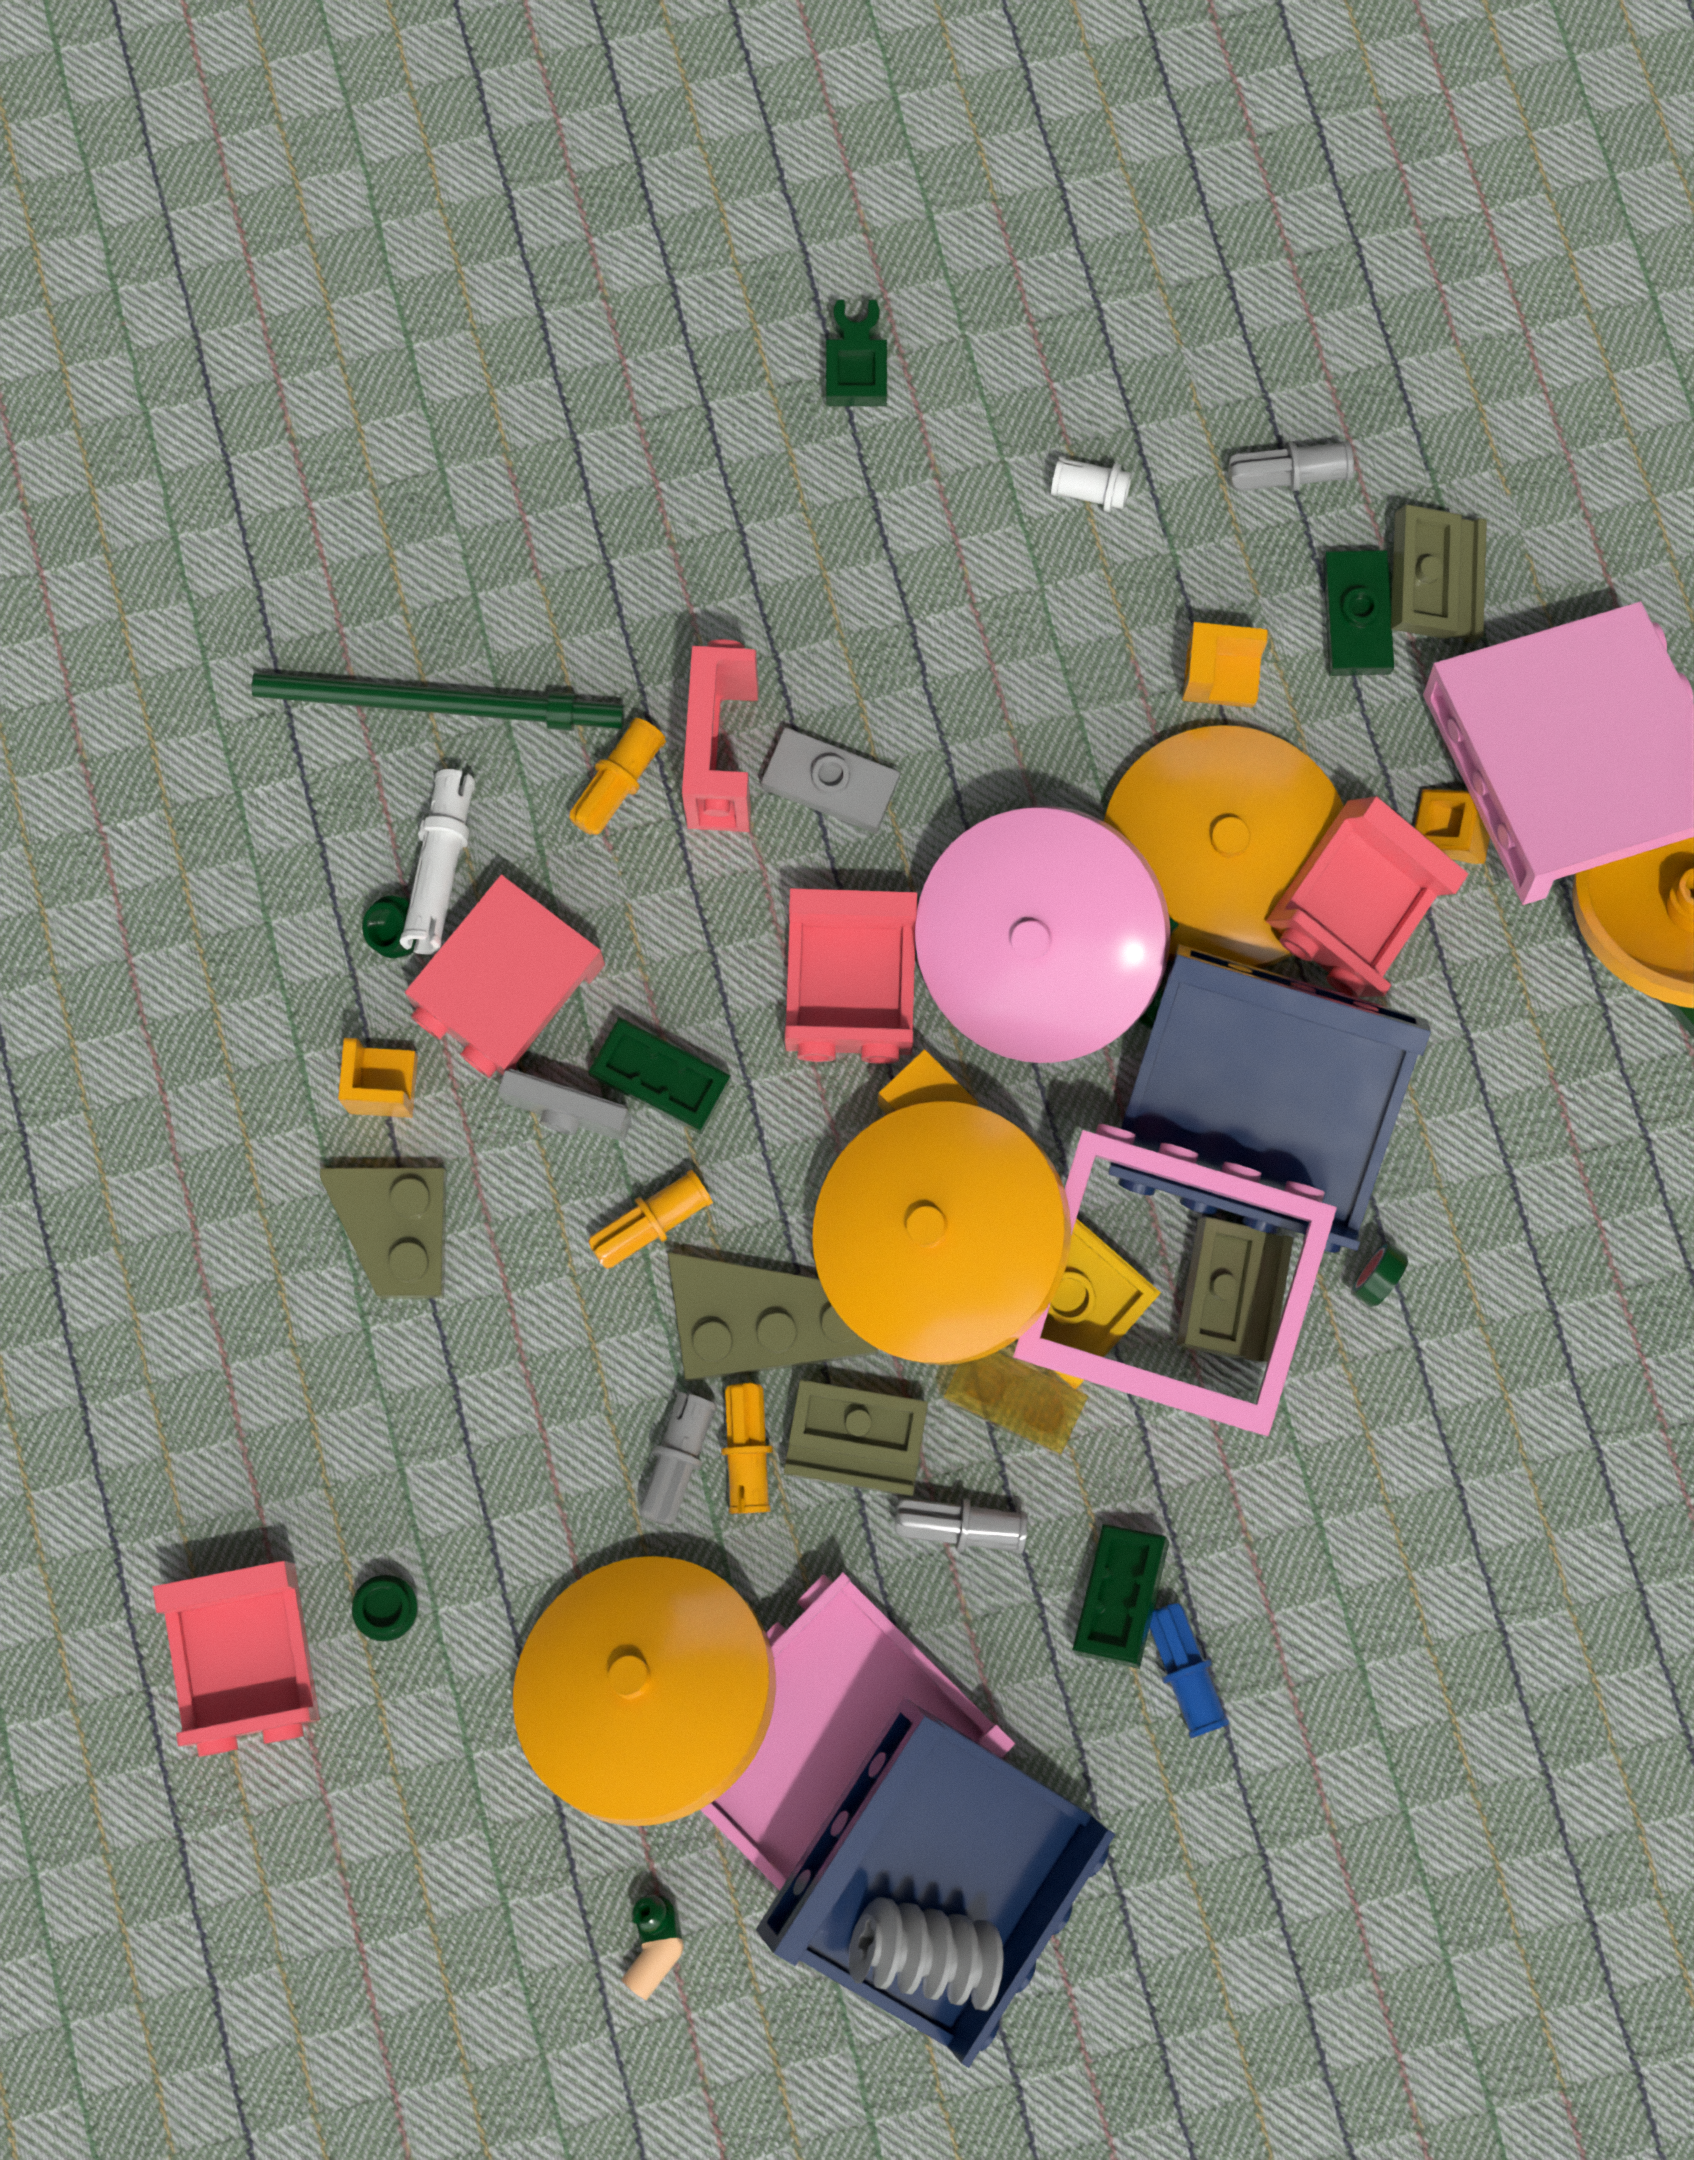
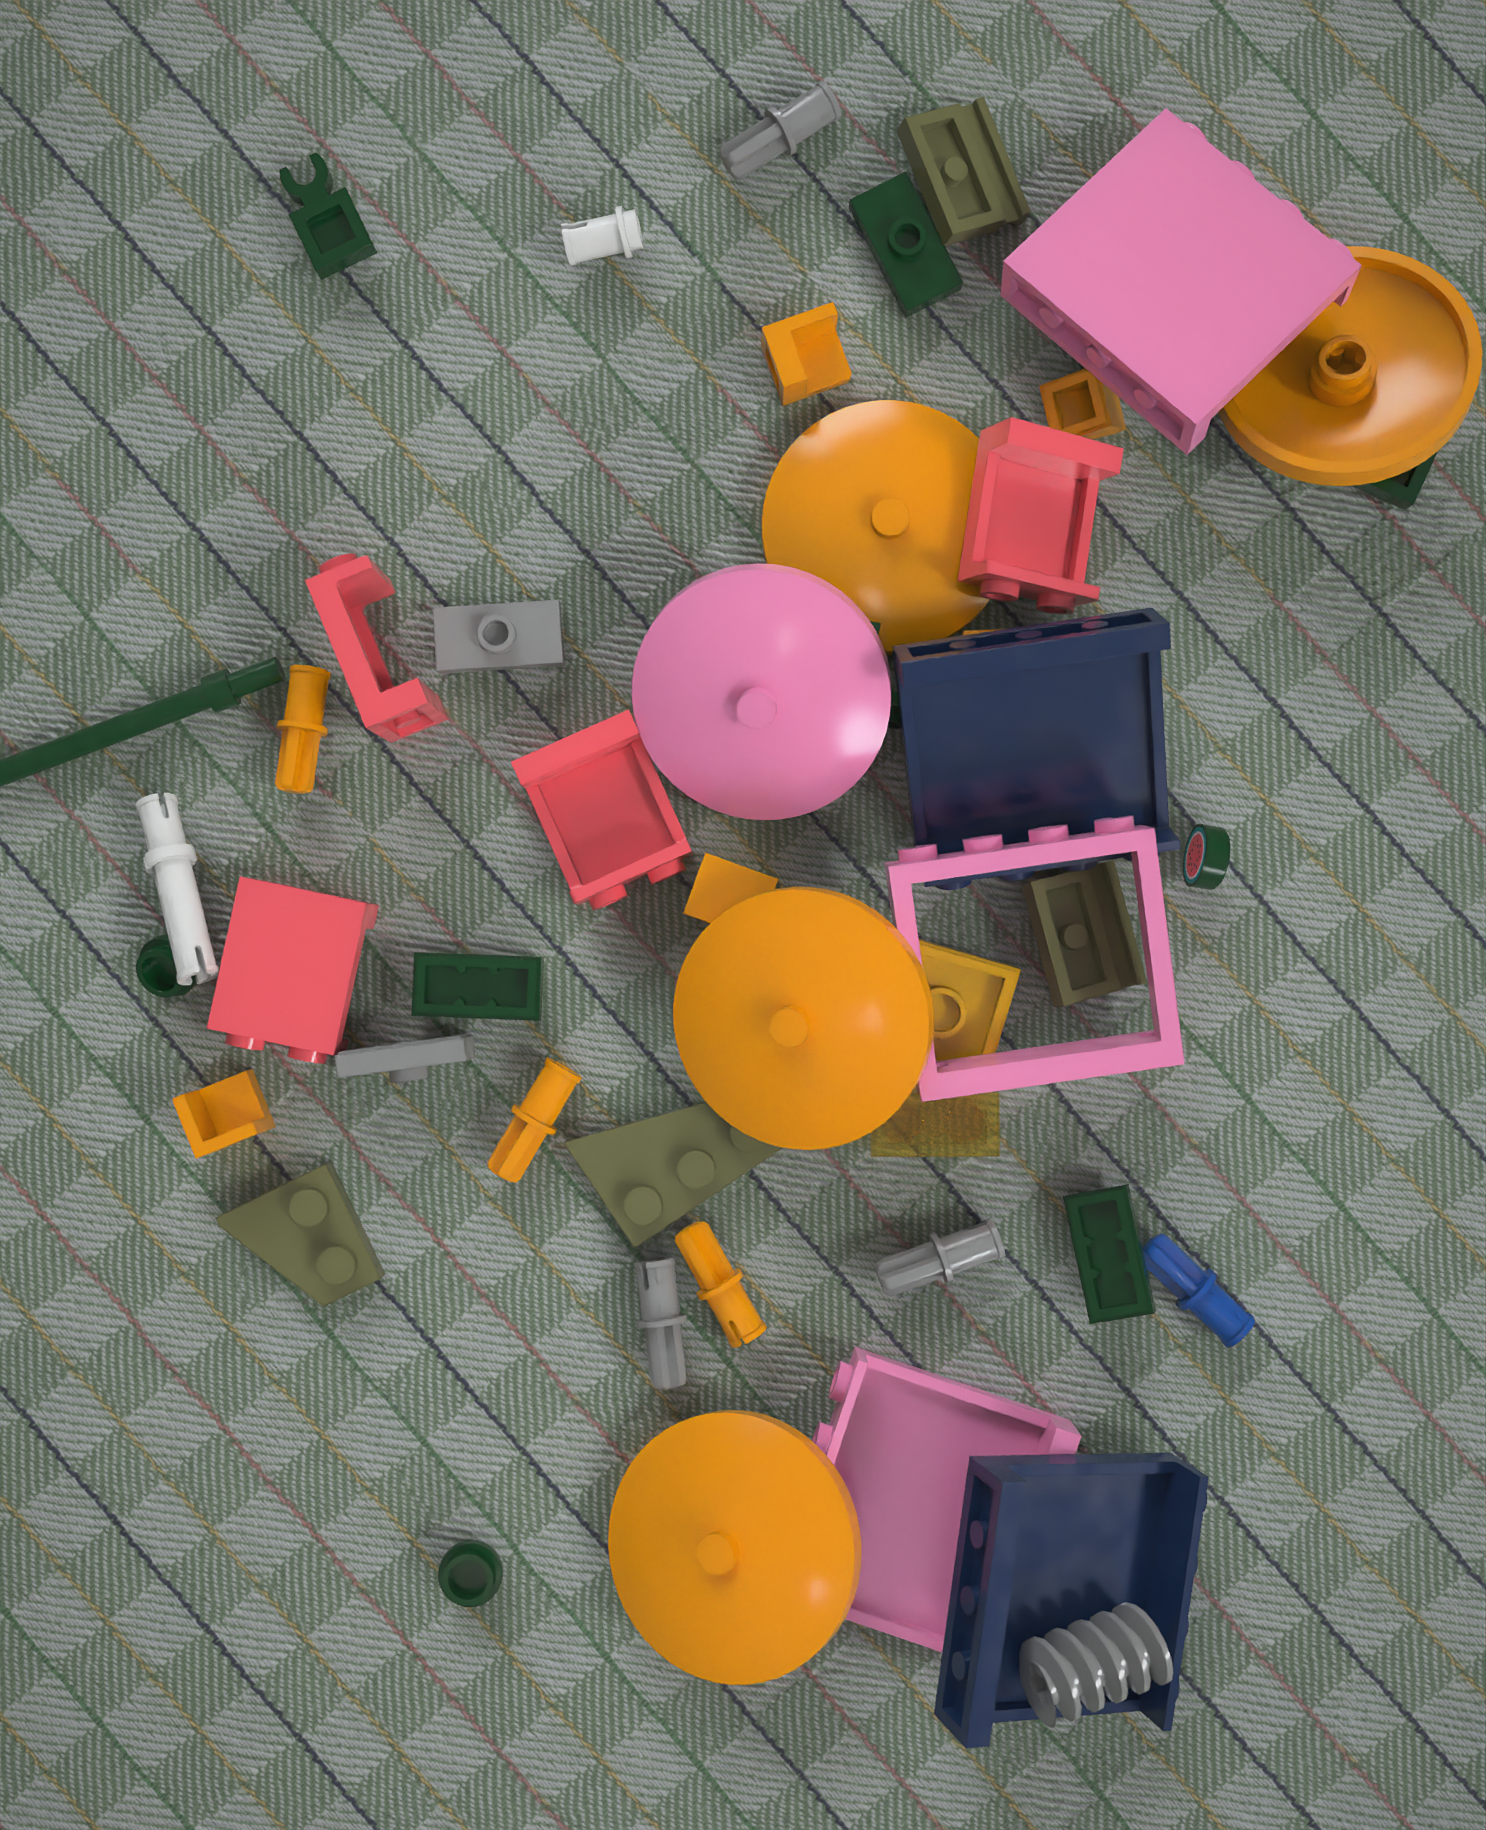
camera: 20 degrees left, 10 degrees up
(239, 1656) = (365, 1680): coral panel -> none
(660, 1944) = (853, 1743): arm -> none
(856, 1438) = (810, 1227): olive plate -> none

